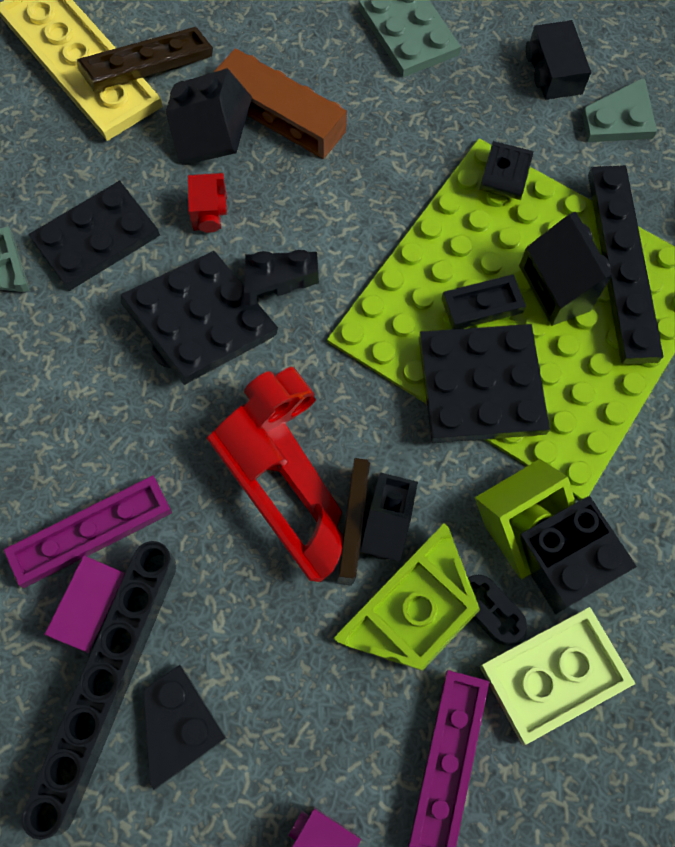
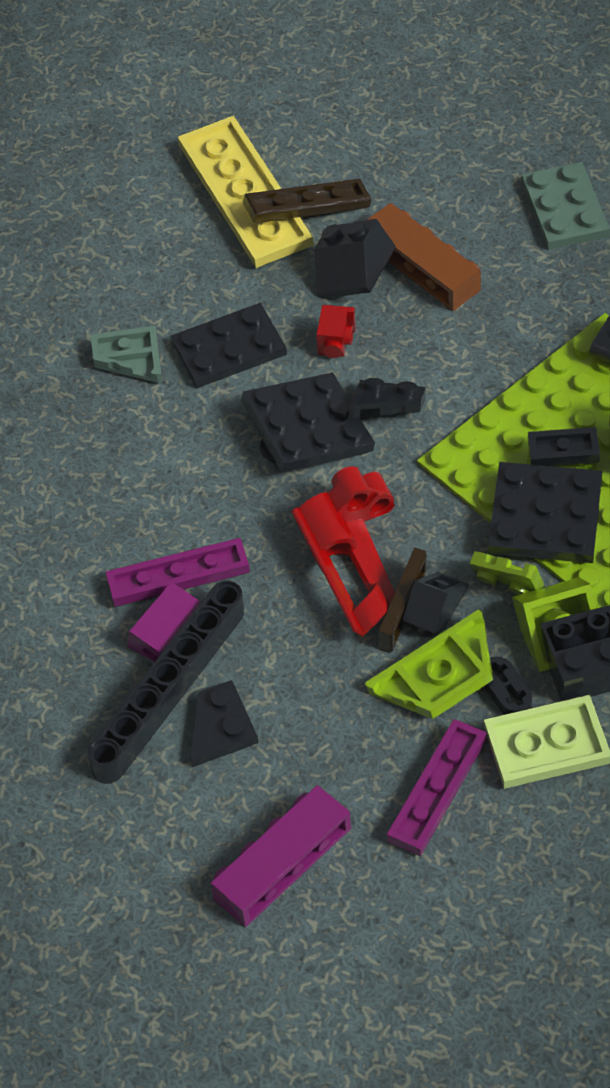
camera: 20 degrees right, 15 degrees down
(475, 473) = (494, 569): none -> lime wing

